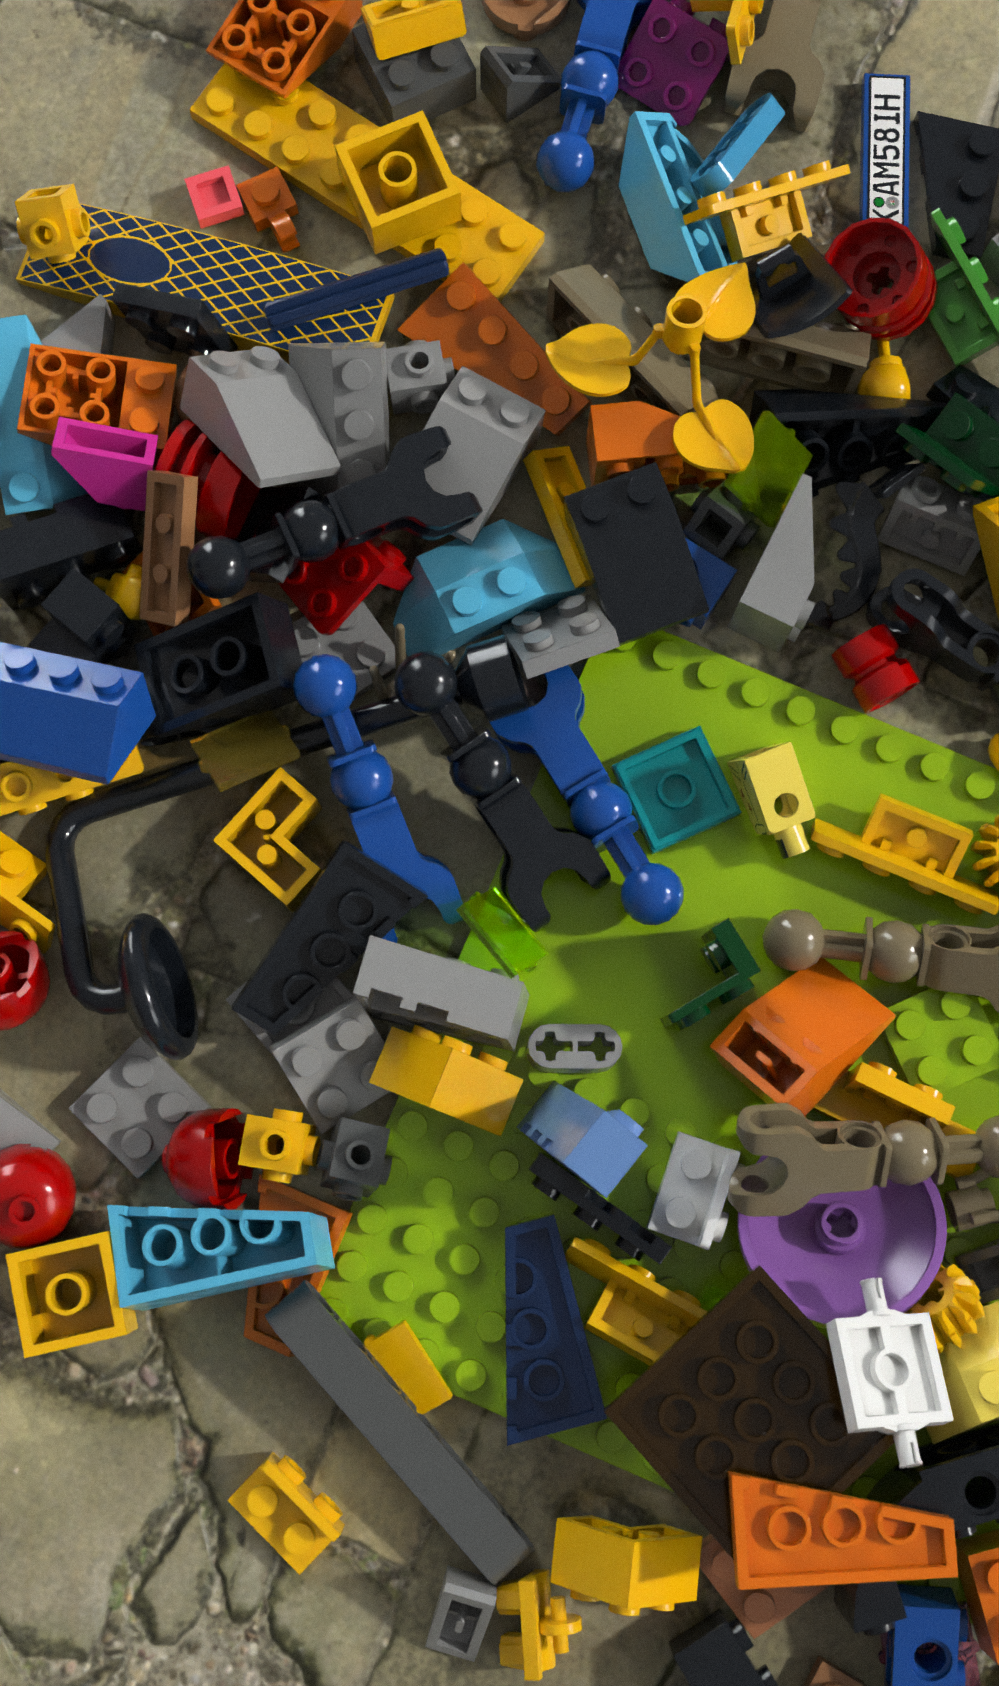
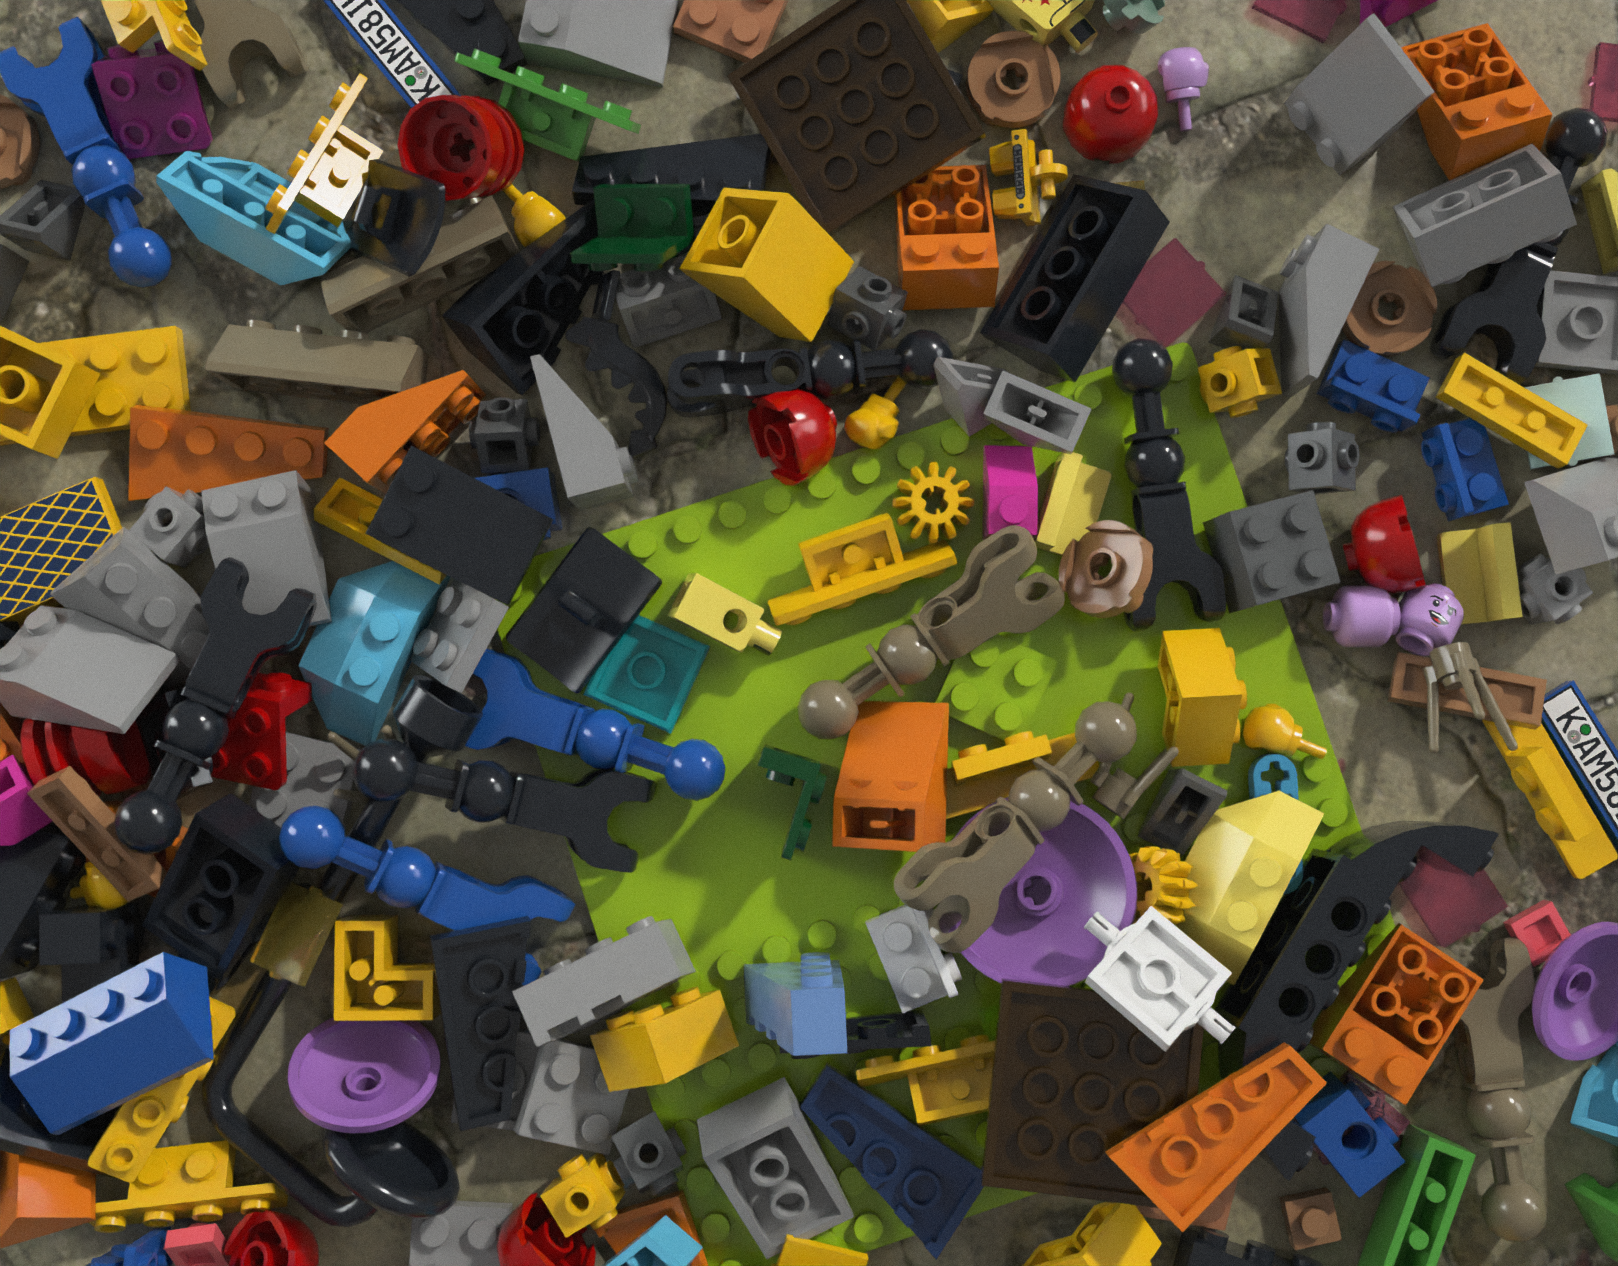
camera: 45 degrees left, 5 degrees up
(200, 899) = (344, 1058): none -> medium lavender dish
(356, 289) = (65, 504): dark blue axle -> none
(442, 1258) = (773, 1167): none -> light grey slope
(502, 932) = (610, 895): clear neon green piece -> none
(574, 1036) = (729, 920): light grey beam -> none
(669, 700) = (583, 609): none -> black shield
(715, 304) = (349, 282): yellow plant -> none
(738, 146) = (261, 133): dark azure beam -> none
(772, 472) = (501, 372): clear neon green piece -> none
(875, 668) = (714, 451): red wheel -> none
(948, 706) = (794, 433): none -> red cylinder

